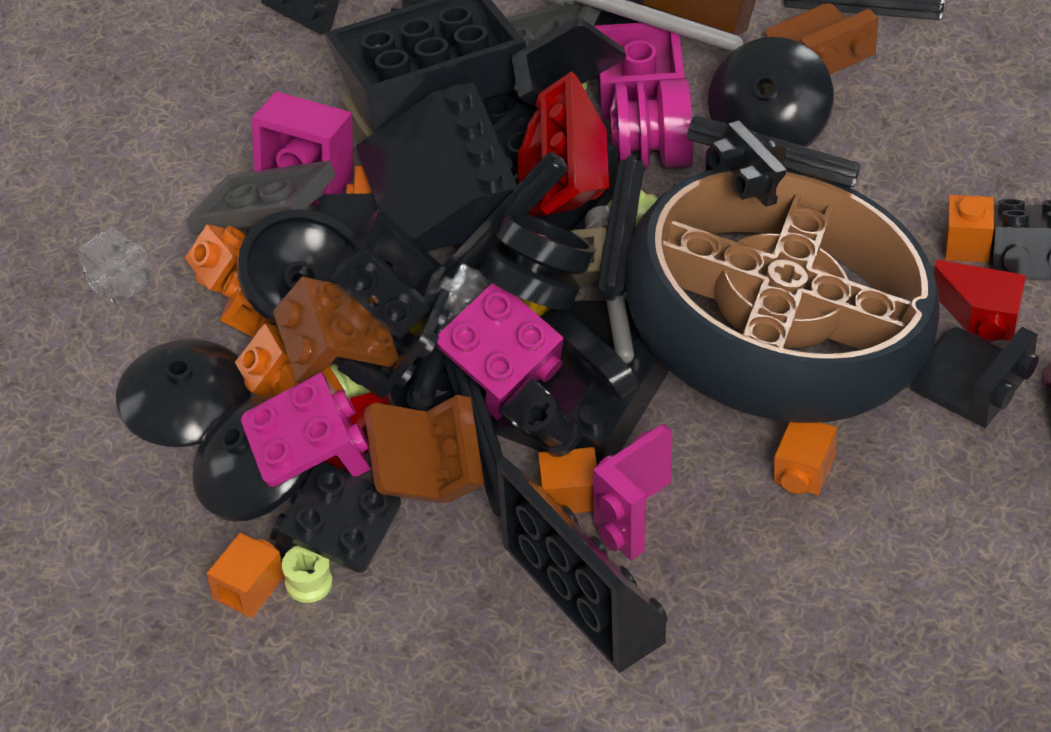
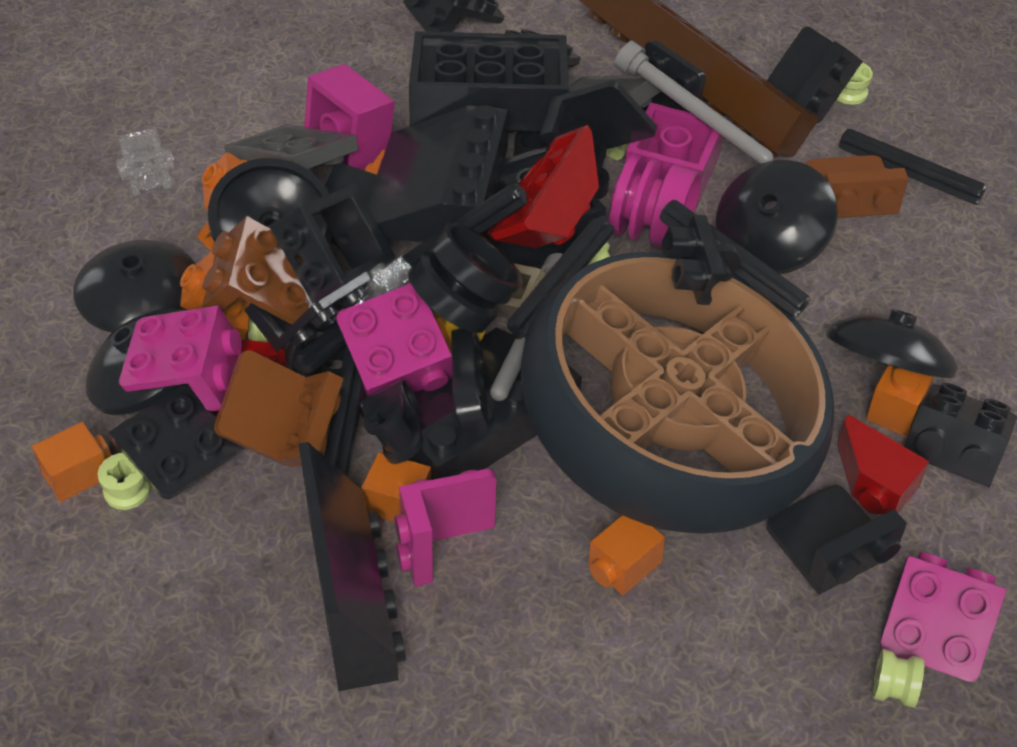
camera: 20 degrees right, 0 degrees up
(943, 178) = (895, 342): none -> black dish

